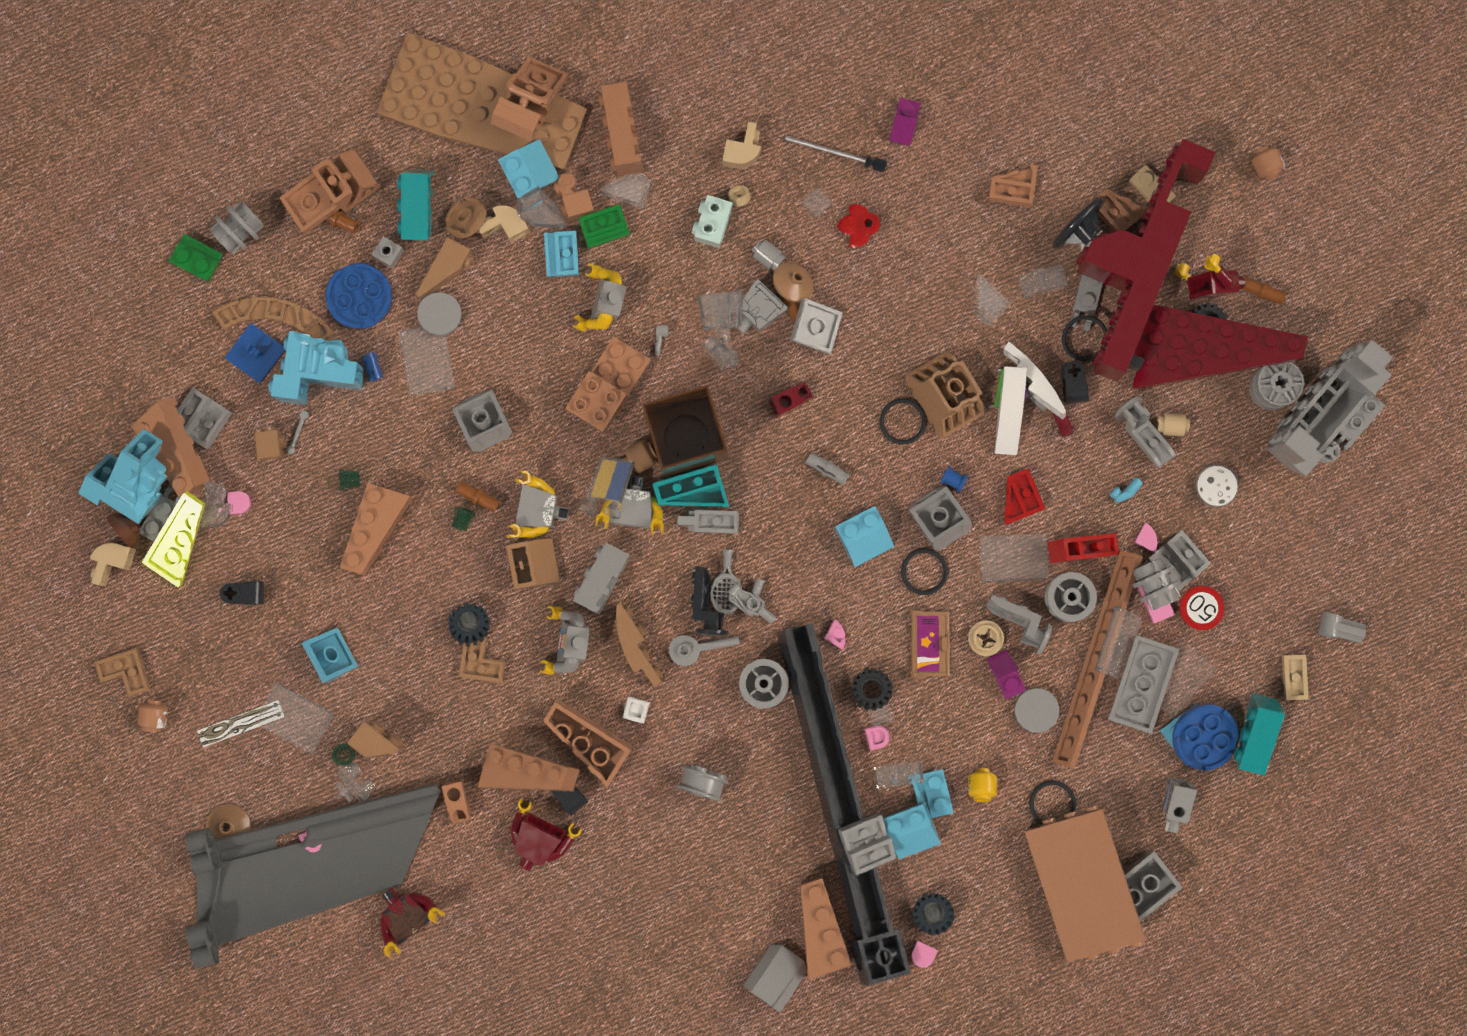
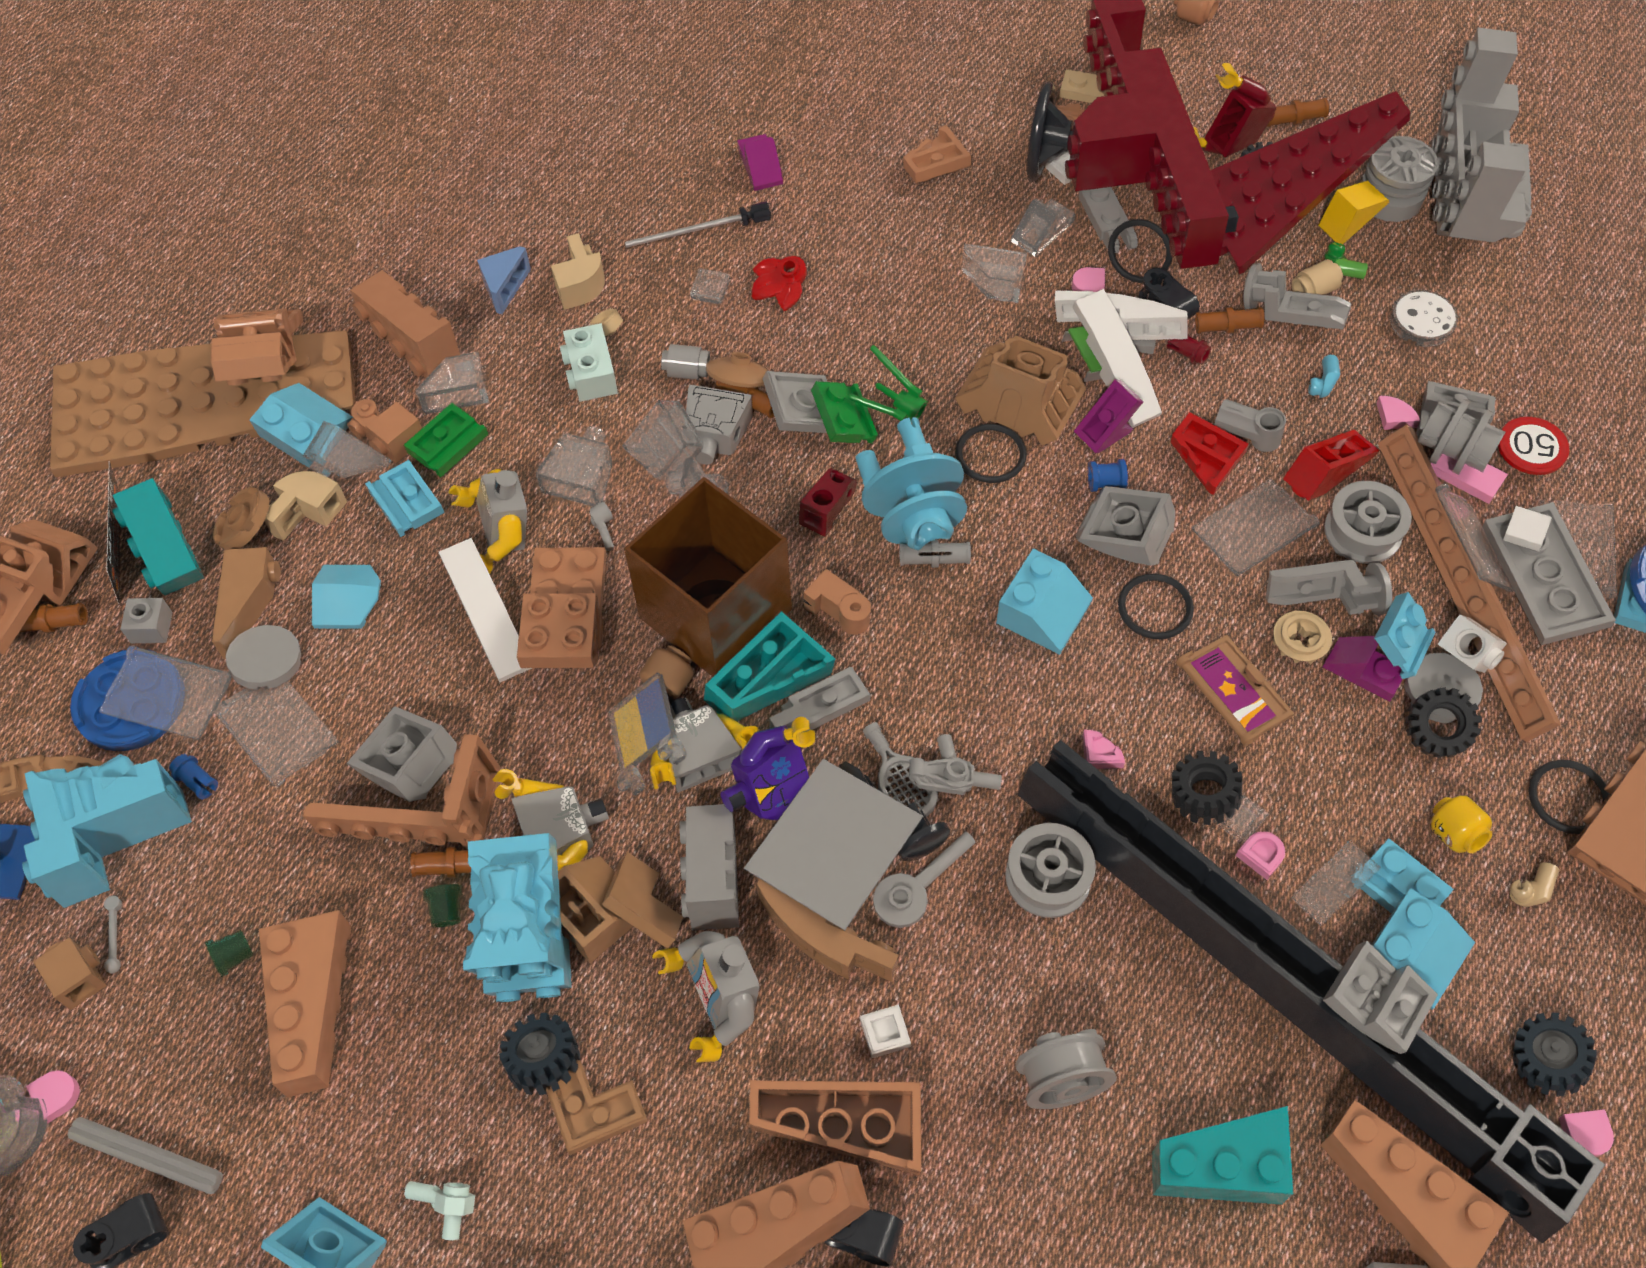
camera: 30 degrees left, 25 degrees down
(268, 559) = (145, 1155): none -> light grey axle
(379, 307) = (166, 693): none -> clear piece
(393, 186) = (113, 536): none -> black sticker
(394, 668) = (452, 1202): none -> light aqua piece
(490, 556) = (517, 918): none -> medium azure brick
(498, 473) = (463, 819): none -> nougat bracket
(500, 298) = (344, 596): none -> medium azure slope
(551, 577) = (632, 901): none -> medium nougat tile
(567, 356) = (483, 607): none -> white slope
(658, 556) = (770, 770): none -> dark purple torso
(665, 607) = (833, 843): none -> light grey piece
(667, 293) = (577, 468): none -> clear torso
(696, 123) = (504, 275): none -> medium blue slope
(749, 866) = (1228, 1161): none -> teal wedge
(758, 468) = (838, 601): none -> nougat leg
(835, 347) = (843, 418): none -> green plate
(845, 423) = (913, 492): none -> medium azure piece
(875, 364) = (907, 404): none -> green plant
(979, 444) = (1109, 417): none -> magenta slope
(993, 838) = (1536, 891): none -> tan arm
(1025, 721) = (1462, 709): none -> black tyre
(1034, 674) = (1404, 635): none -> medium azure plate
(1040, 340) = (1089, 279): none -> bright pink tile
(1055, 493) = (1261, 426): none -> light grey piece
(1058, 698) = (1459, 636): none -> white brick
(1100, 419) = (1229, 320): none -> dark orange pin
(1150, 656) = (1527, 528): none -> white tile
(1198, 419) = (1348, 267): none -> arm
(1231, 390) = (1351, 210): none -> yellow slope

